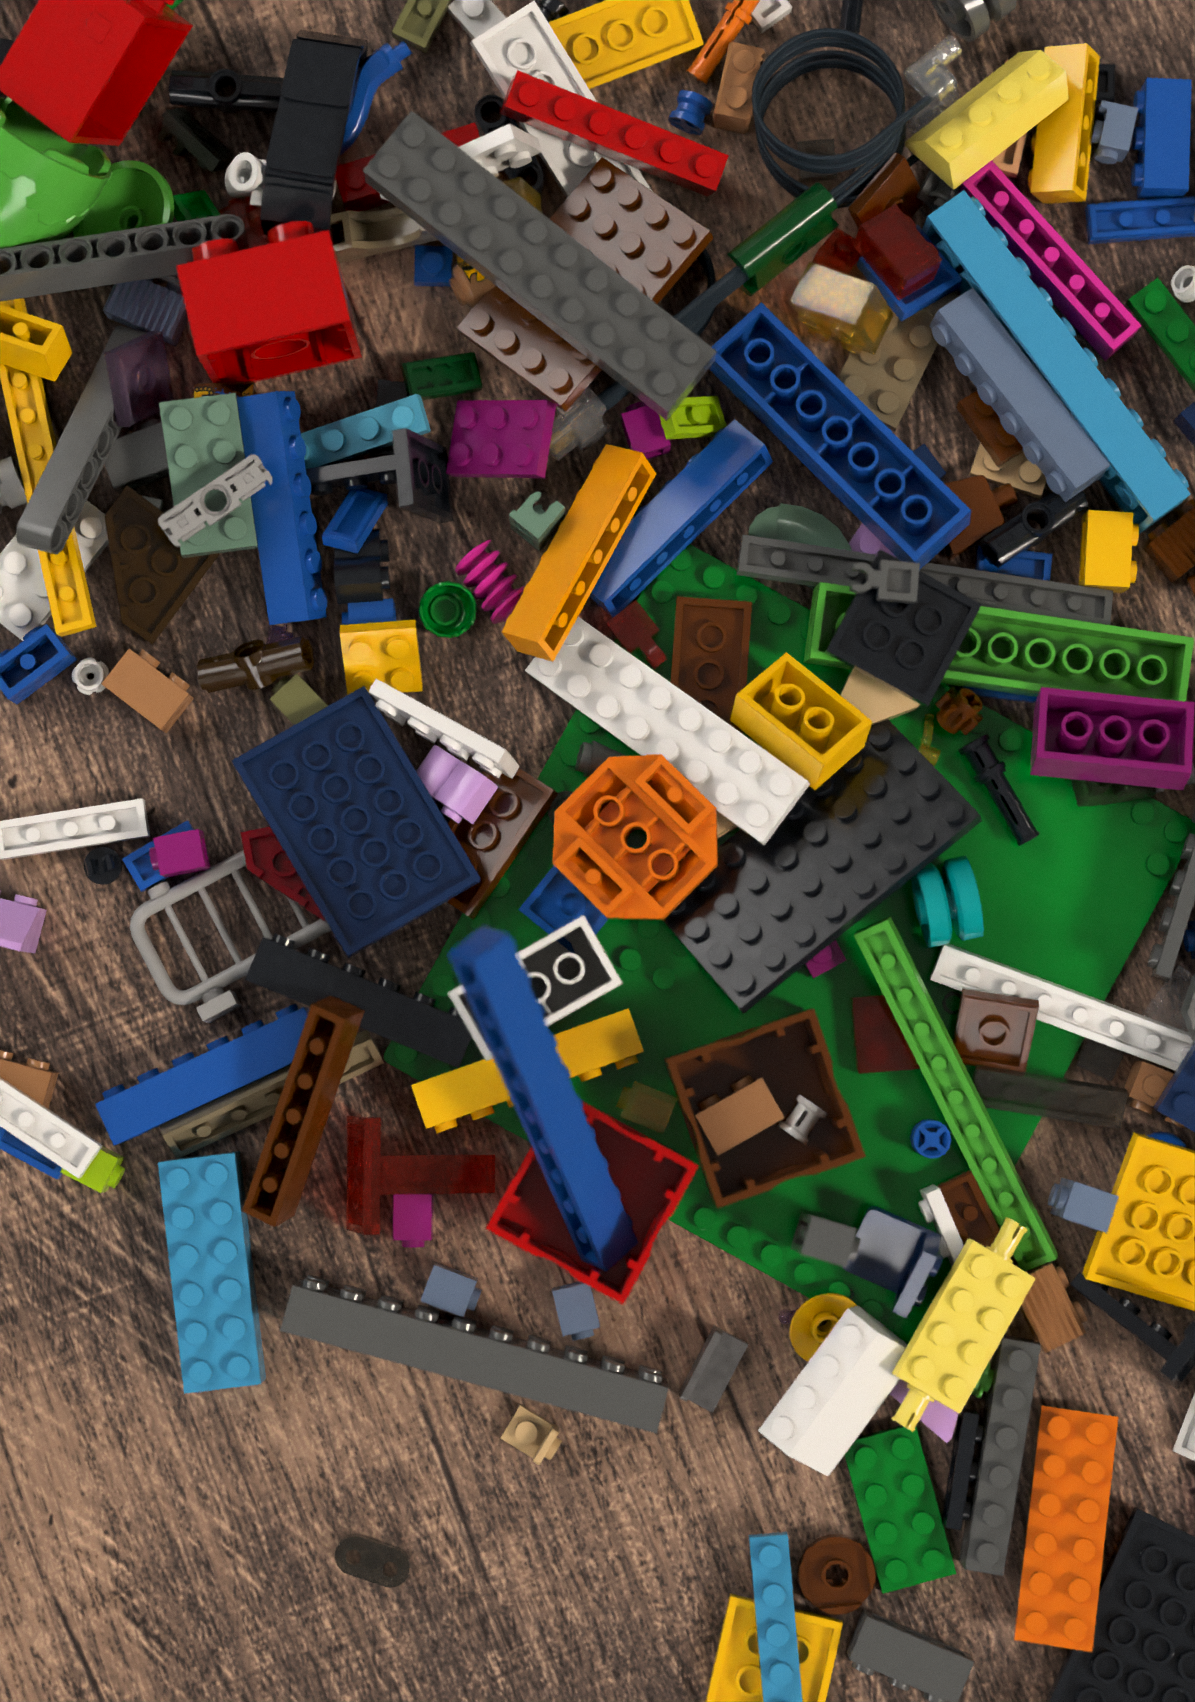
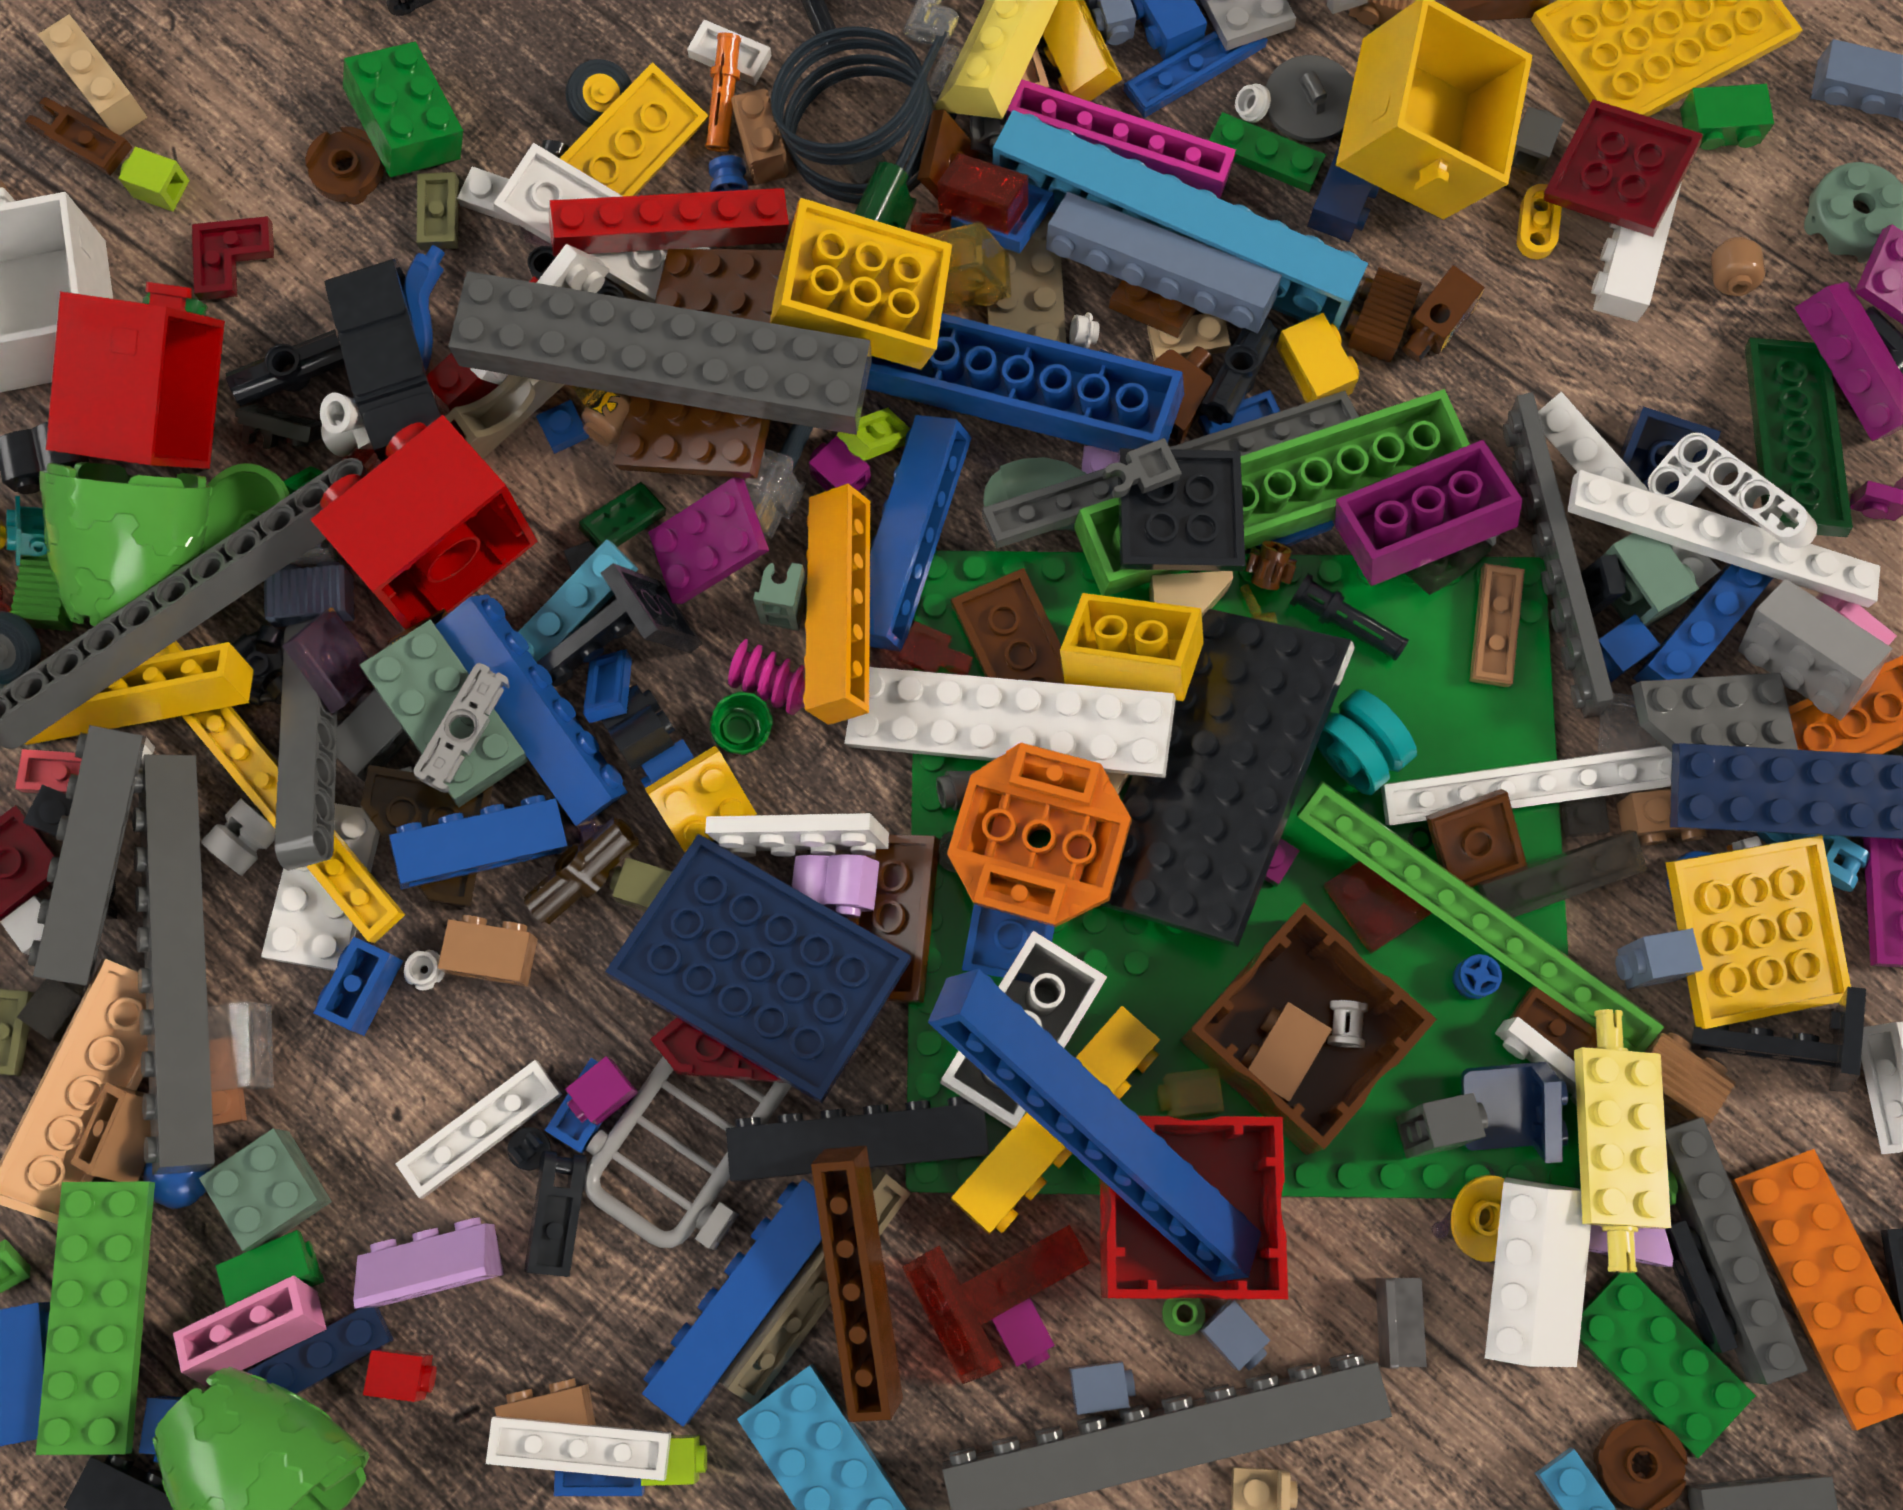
camera: 25 degrees left, 10 degrees down
(81, 346) = (263, 664): none -> black piece
(97, 929) = (555, 1215): none -> black plate
(183, 597) = (477, 842): none -> blue brick
(540, 1281) = (1183, 1328): none -> bright green plate
(742, 290) = (863, 282): none -> yellow slope
(922, 416) = (1083, 331): none -> white plate
(1122, 861) = (1497, 625): none -> medium nougat tile

